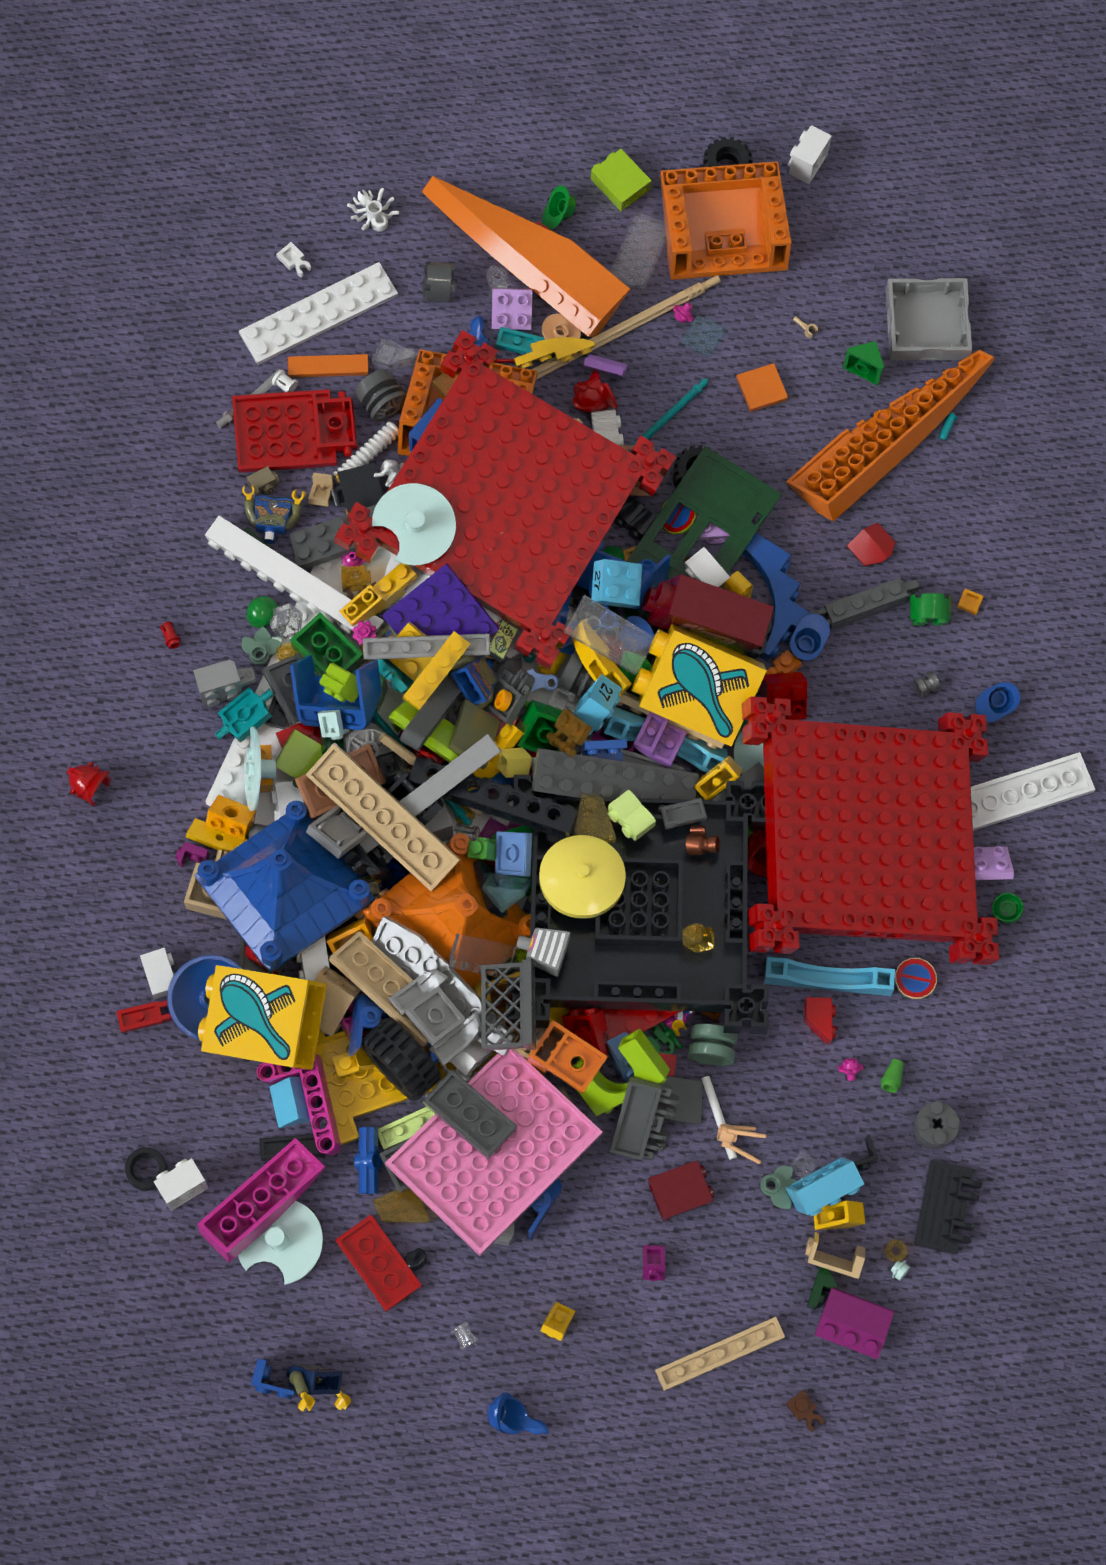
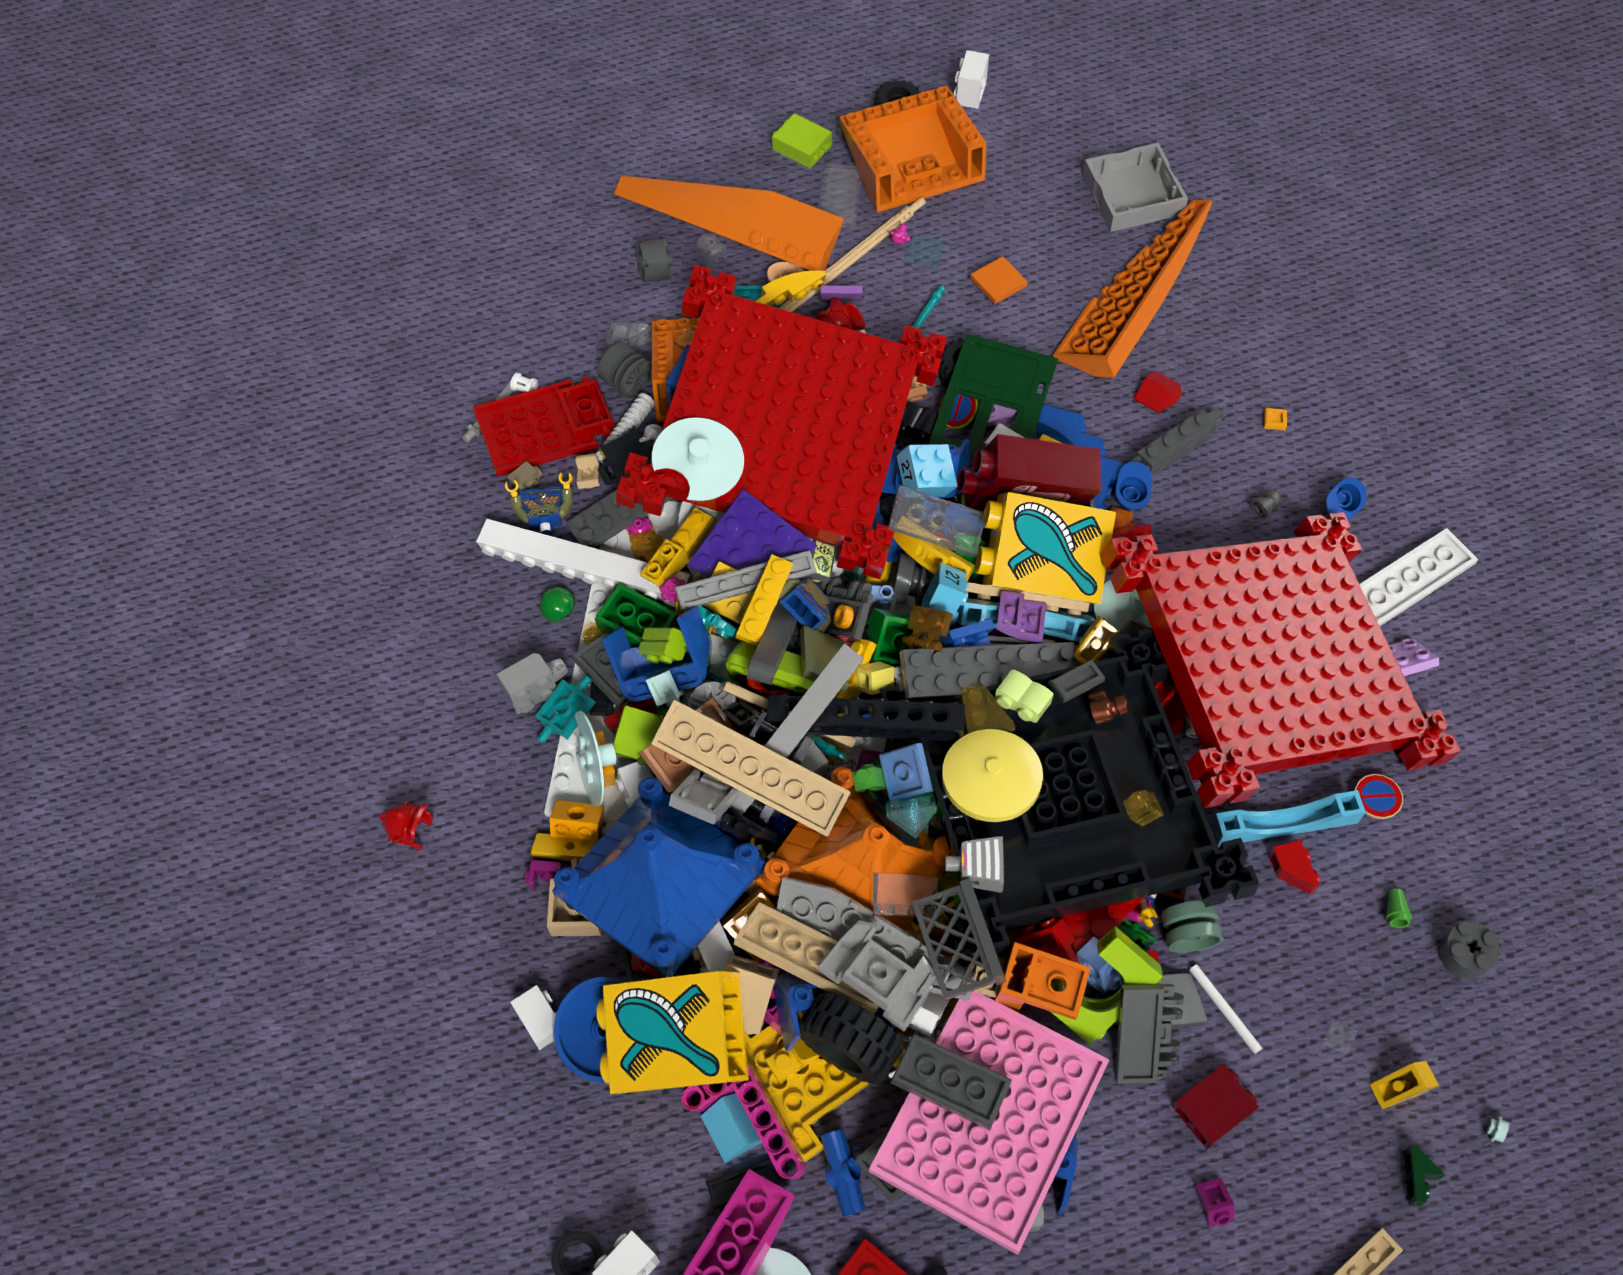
camera: 10 degrees left, 10 degrees down
(142, 1016) = (530, 1073): red hinge -> none
(172, 640) = (466, 655): red pin -> none
(261, 644) = (564, 636): sand green plate -> none
(286, 620) = (585, 603): clear brick -> none
(293, 257) = (503, 274): white plate -> none
(318, 313) = (540, 318): white plate -> none
(328, 365) = (563, 360): orange tile -> none
(373, 211) = (571, 218): white animal -> none
(401, 1208) = (898, 1220): clear yellow wing -> none
(404, 1128) = (875, 1120): yellowish green plate -> none
(512, 308) = (734, 261): lavender plate -> none
(559, 208) = (751, 172): green piece -> none
(729, 1133) = (1247, 1023): light nougat plant -> none
(781, 1179) = (1329, 1069): sand green plate -> none
(806, 327) = (1024, 223): tan hand -> none
(825, 1186) = (1379, 1053): medium azure brick -> none
(840, 1265) = (1450, 1137): tan panel -> none
(850, 1067) = (1349, 912): dark pink plant -> none
(854, 1323) = (1478, 1209): magenta slope -> none
(865, 362) = (1091, 233): green slope -> none
(865, 1164) = (1414, 1005): black bracket -> none
(899, 1244) = (1488, 1102): clear yellow plate -> none
(930, 608) = (1243, 430): green brick -> none
(942, 1206) = (1511, 1046): black hinge -> none
(947, 426) = (1188, 271): teal piece -> none
(1011, 905) = (1444, 695): green hair -> none

